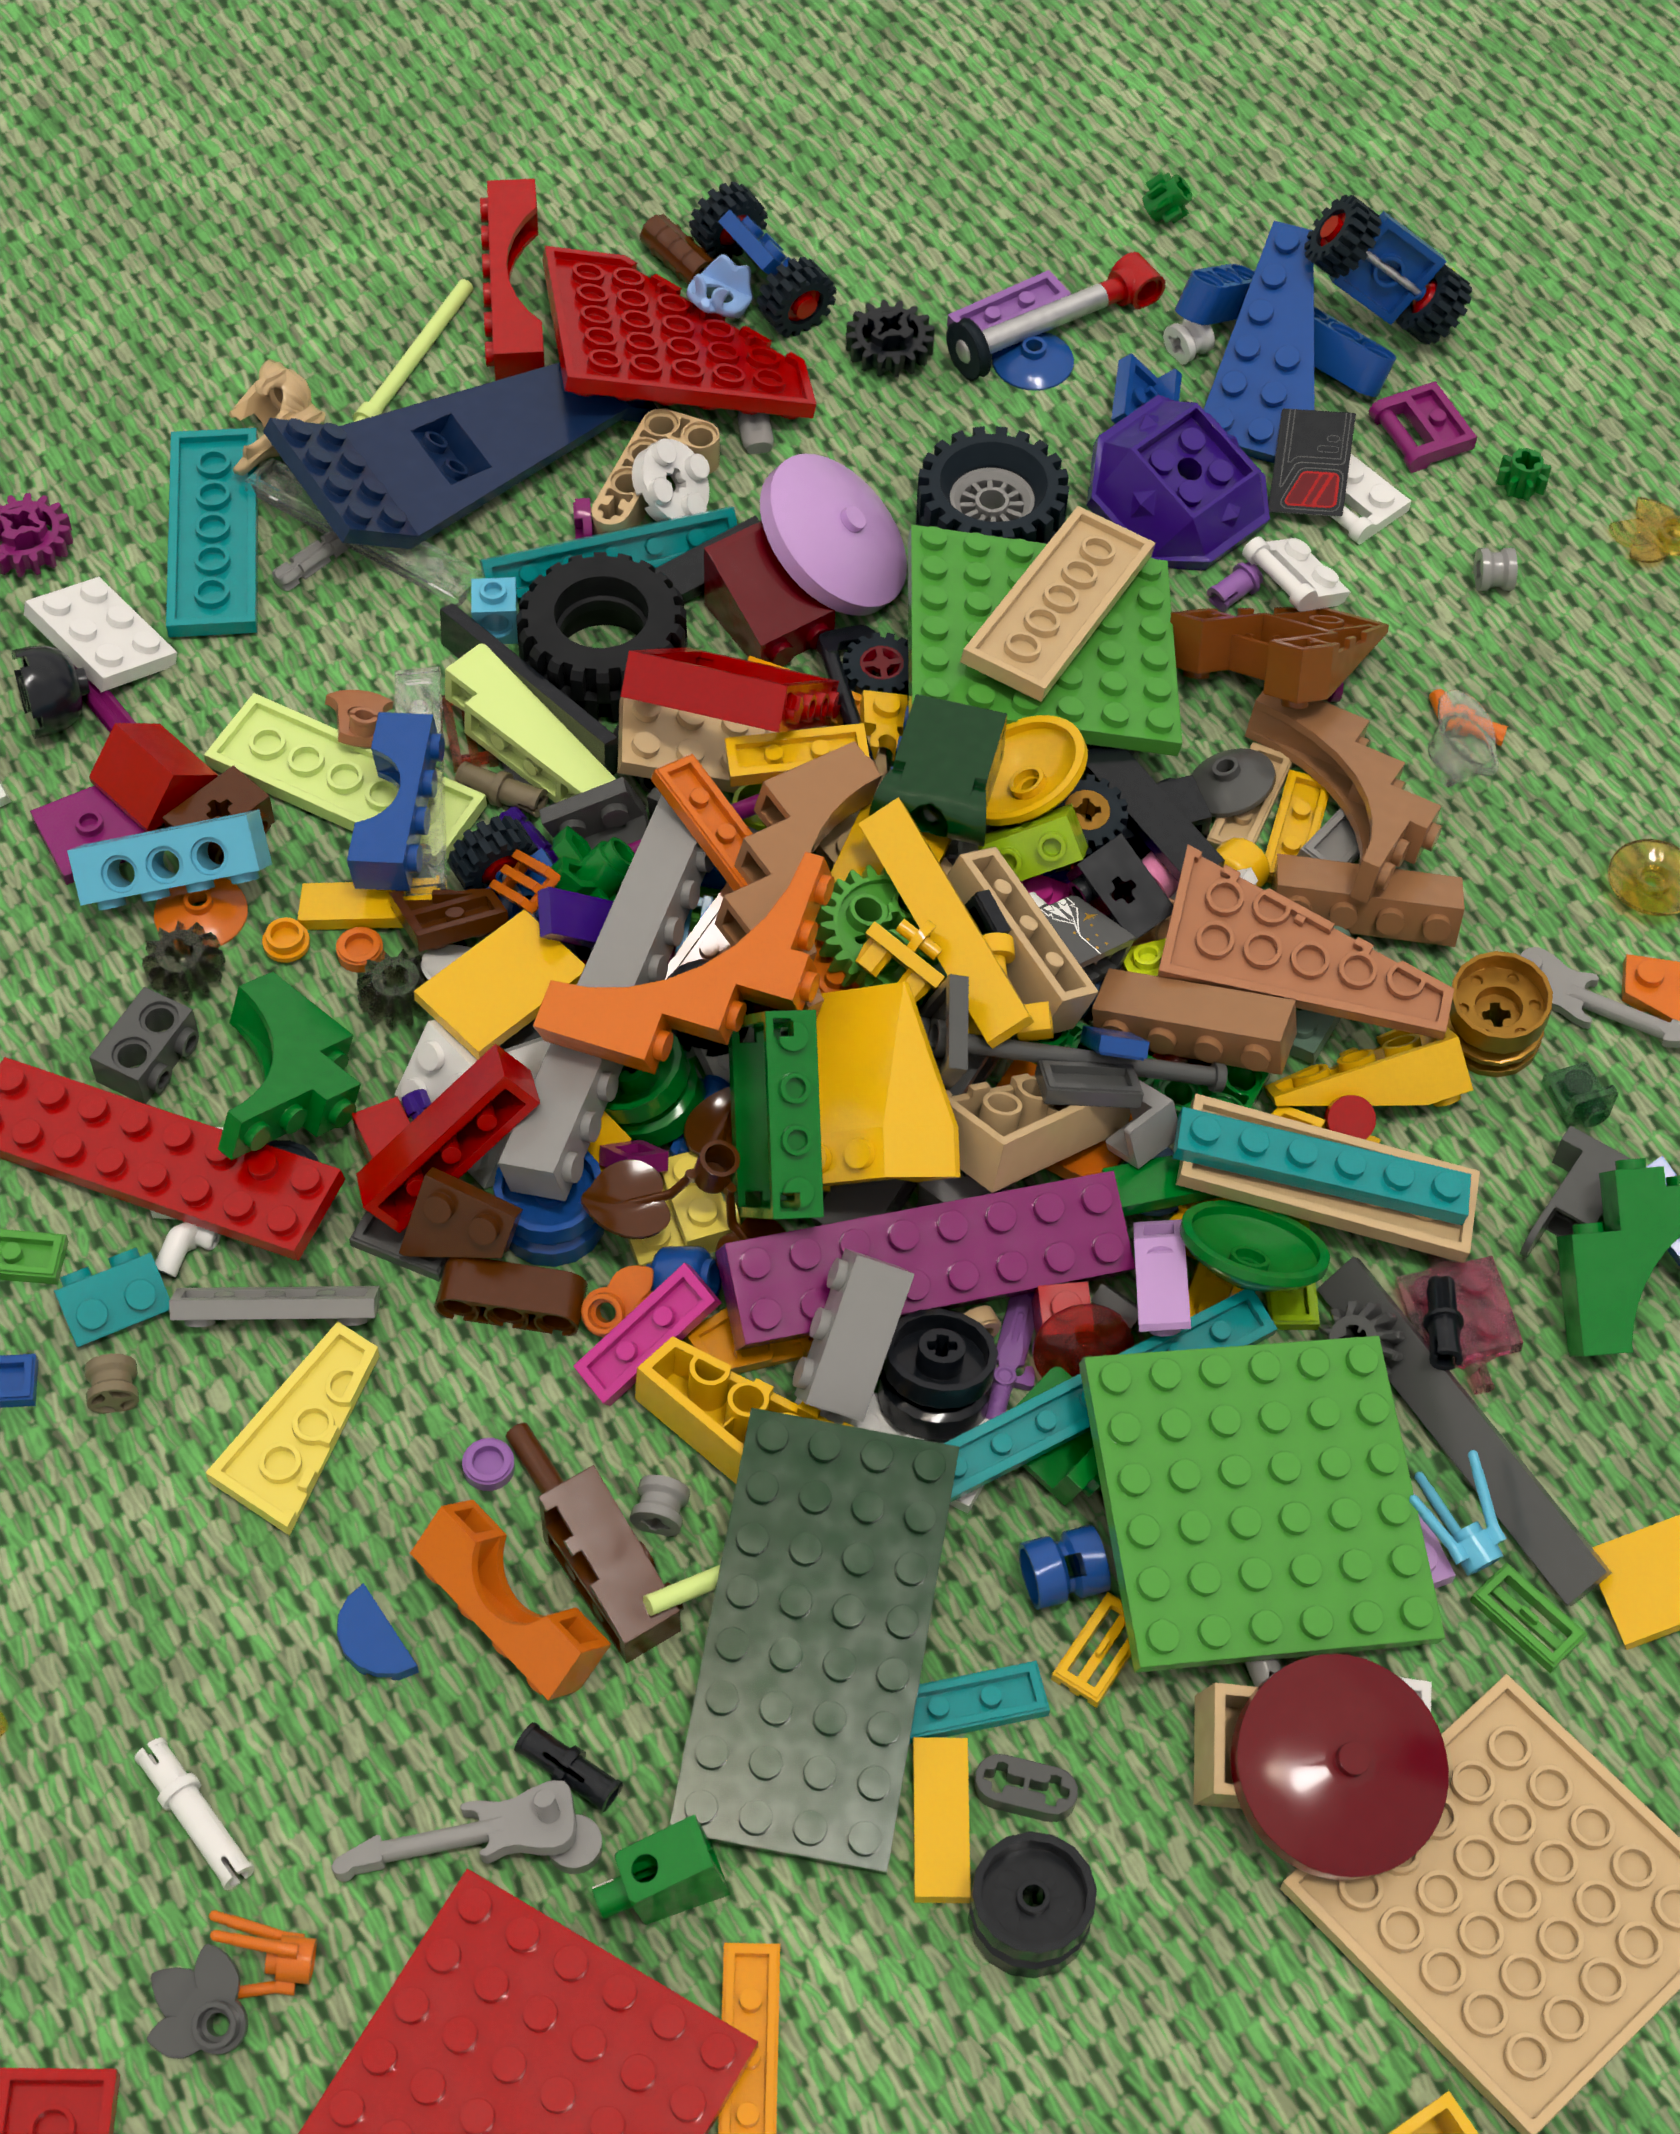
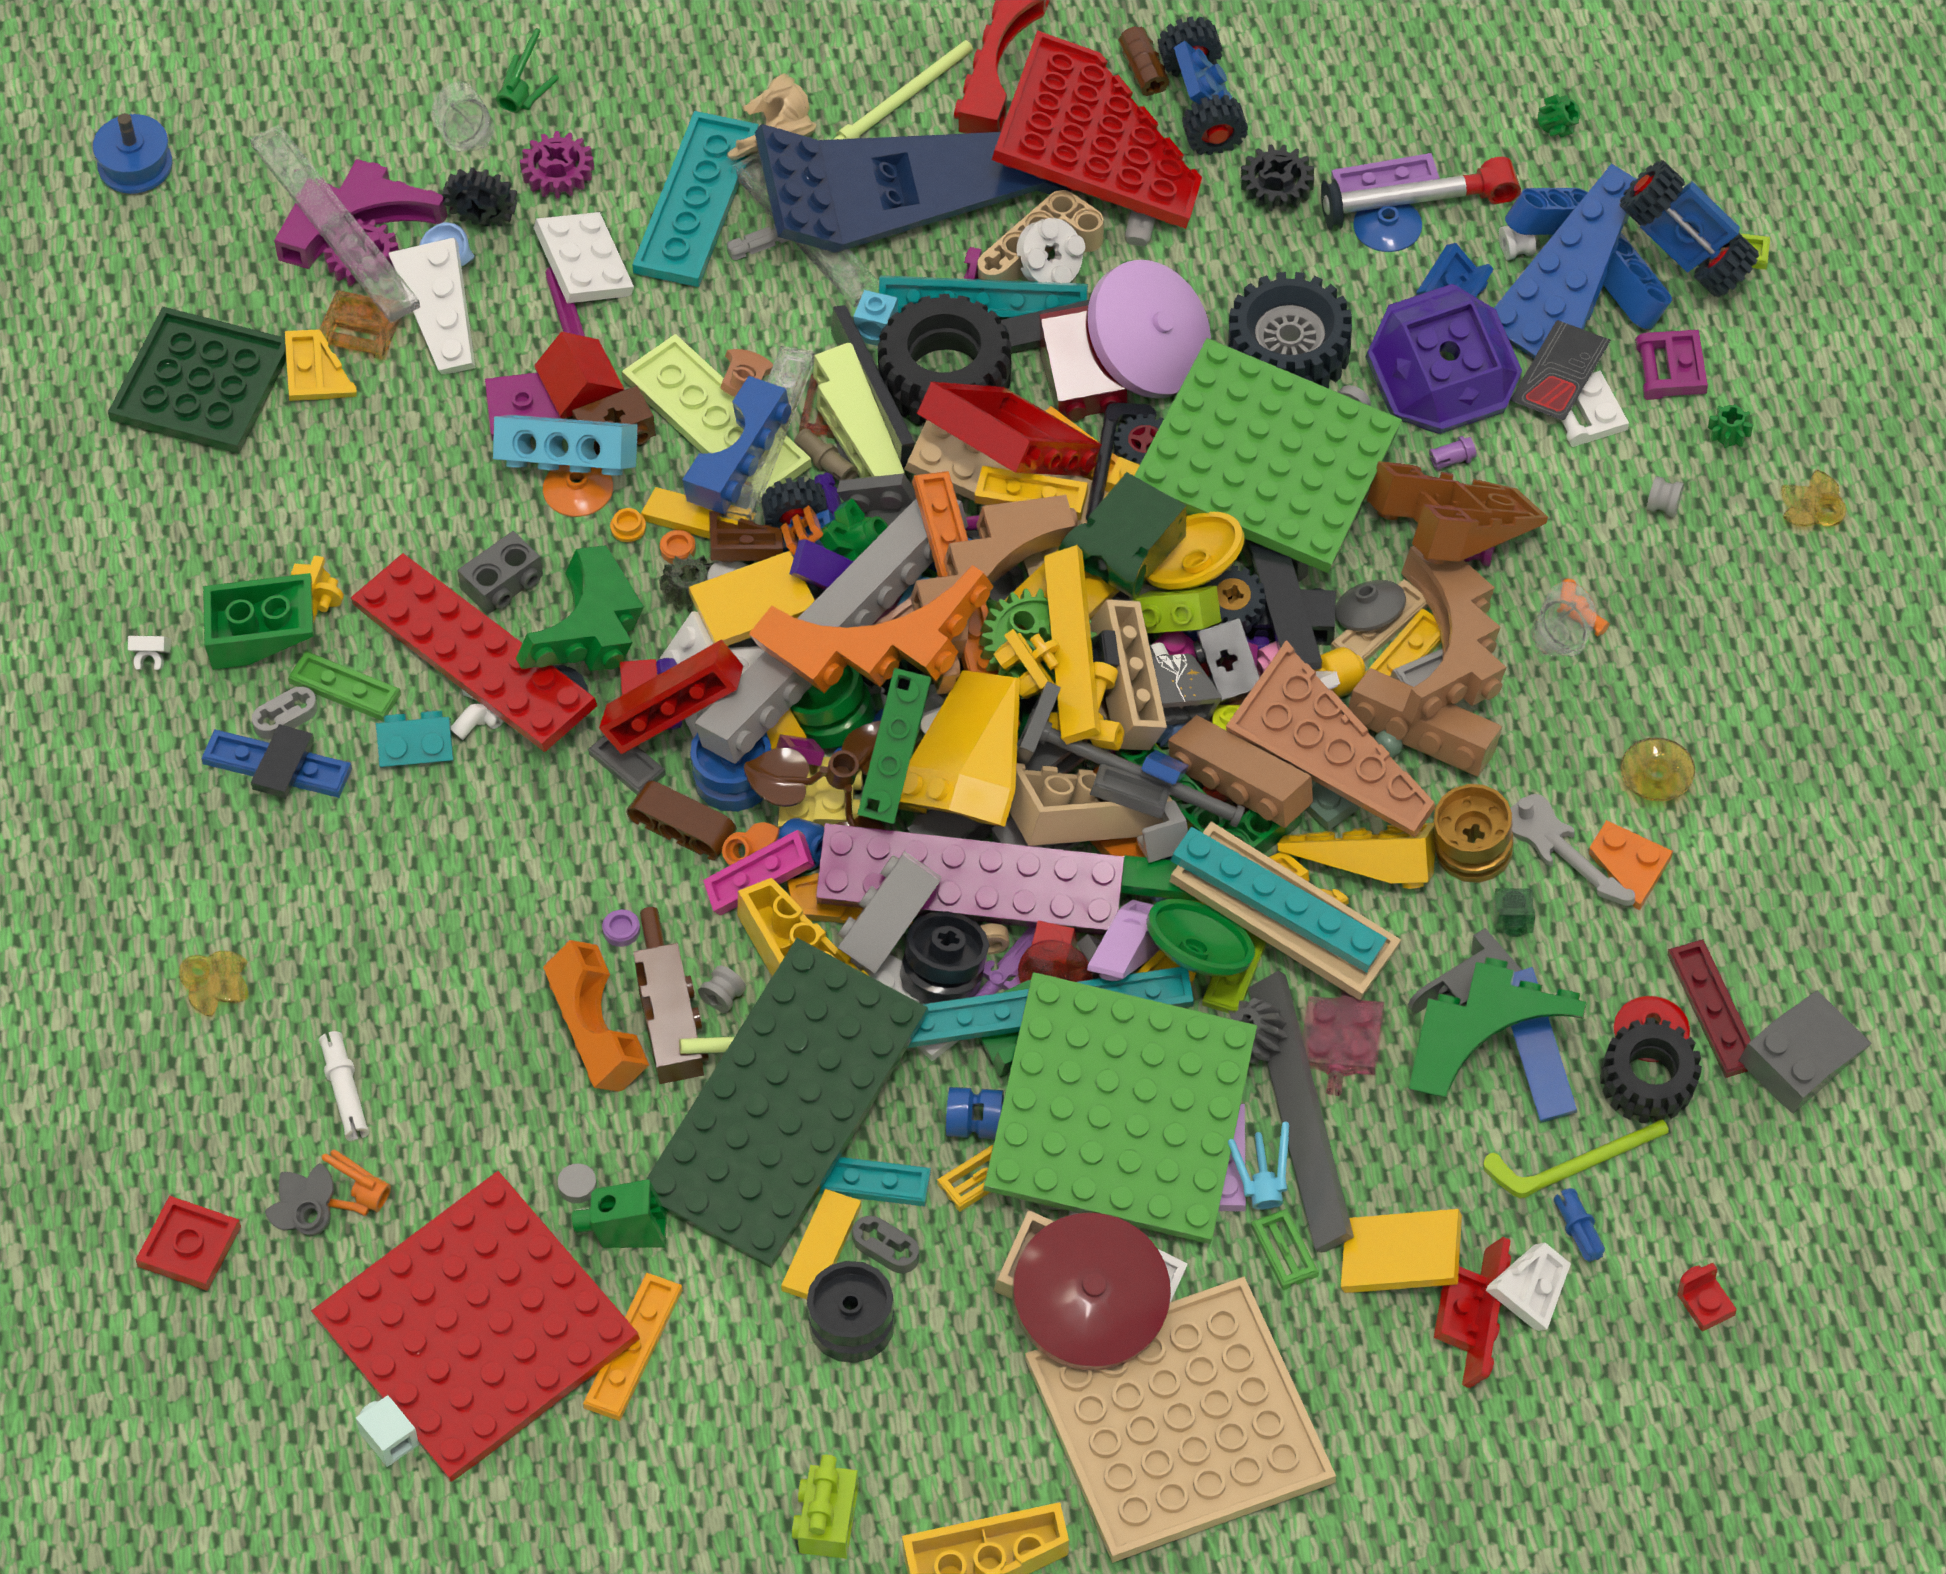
camera: 25 degrees right, 0 degrees up
(50, 688) = (530, 291): black cylinder -> none
(111, 1383) = (392, 797): dark tan wheel -> none
(183, 961) = (549, 520): clear smoke gear -> none
(293, 1435) = (497, 869): light yellow wing -> none
(345, 1303) = (474, 764): light grey plate -> none
(370, 1640) = (497, 1015): blue tile -> none
(458, 1220) = (659, 756): reddish brown wing -> none
(532, 1823) = (553, 1160): light grey piece -> none
(568, 1766) = (592, 1134): black pin -> none
(723, 283) = (1163, 94): light blue piece -> none
(1057, 603) = (1284, 430): tan plate -> none
(1297, 572) = (1503, 456): white plate -> none
(1351, 1116) = (1327, 875): red tile -> none
(1443, 1323) = (1316, 1034): black axle -> none

